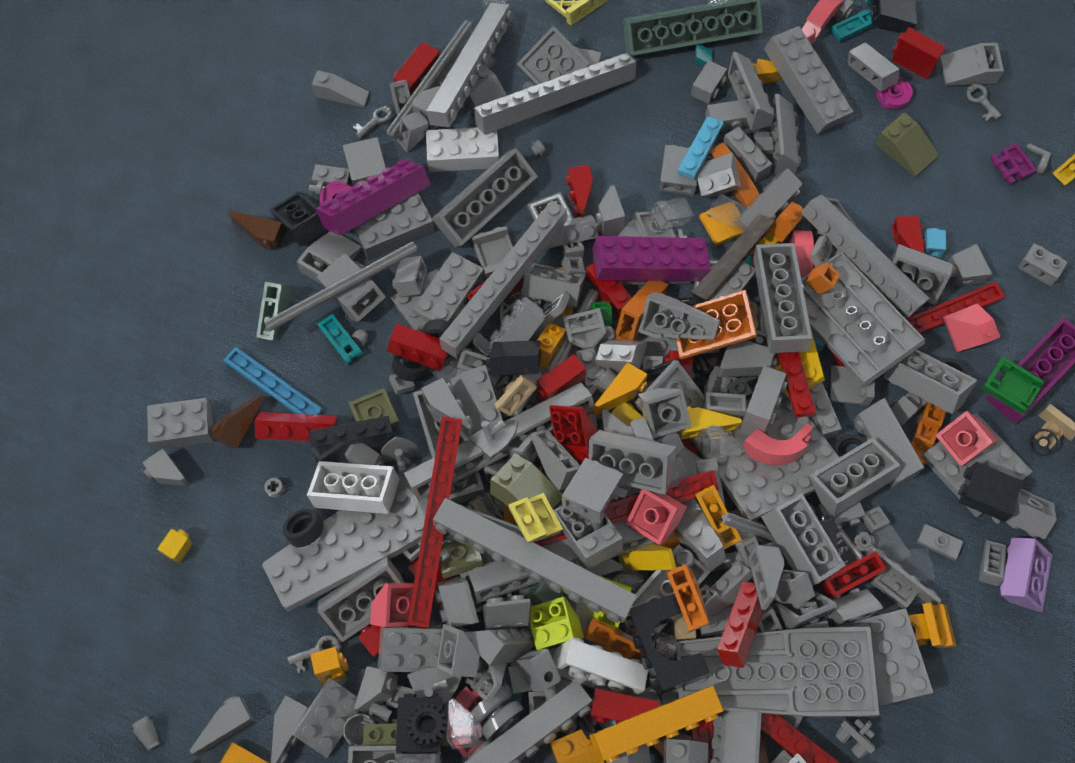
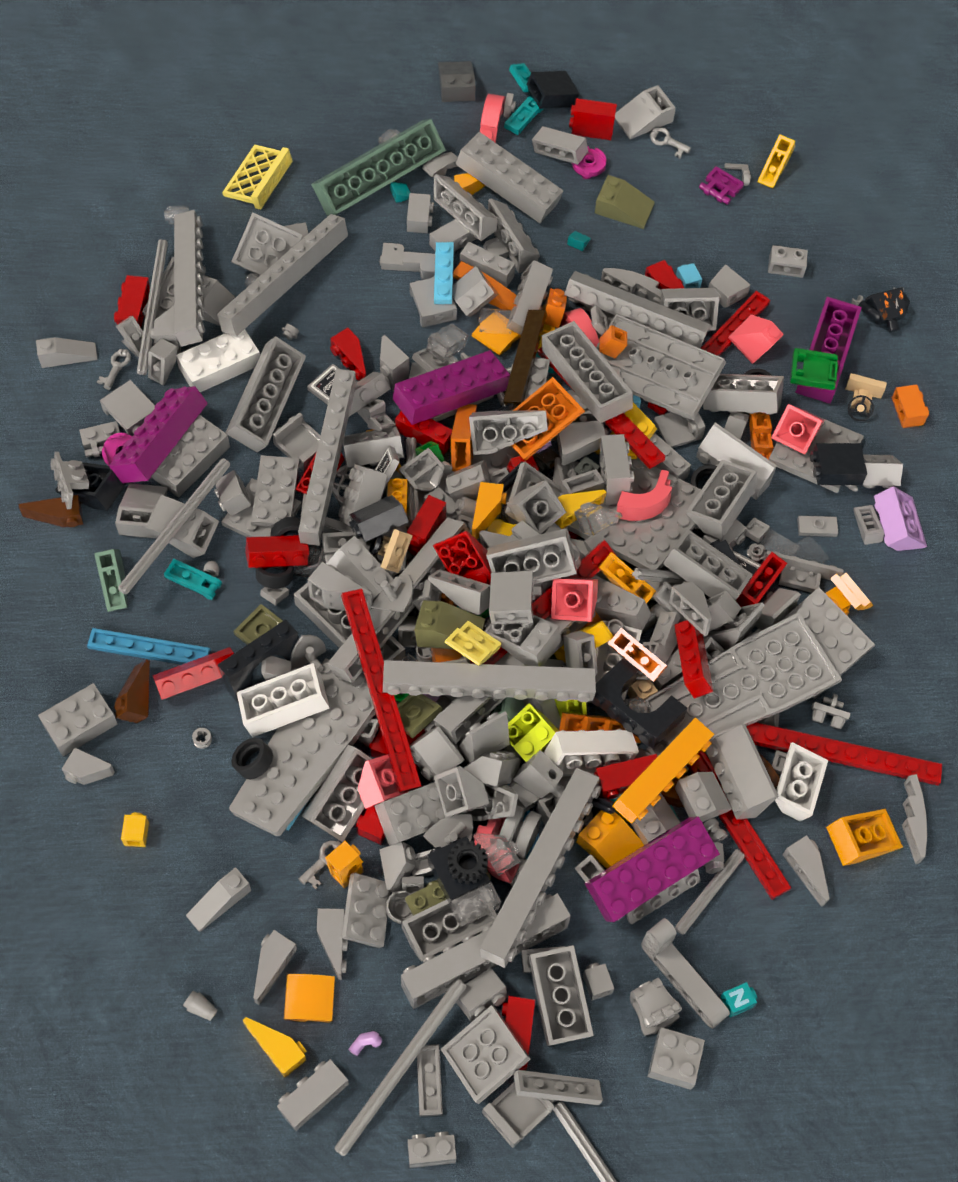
camera: 30 degrees left, 5 degrees down
(212, 643) = (219, 899): none -> light grey slope
(283, 204) = (69, 476): none -> light grey bracket
(636, 570) = (580, 650): none -> light grey brick
(674, 122) = (407, 261): none -> light grey piece
(751, 43) = (440, 164): none -> light grey slope
(845, 164) = (578, 240): none -> teal slope
(876, 226) = (633, 283): none -> light grey slope

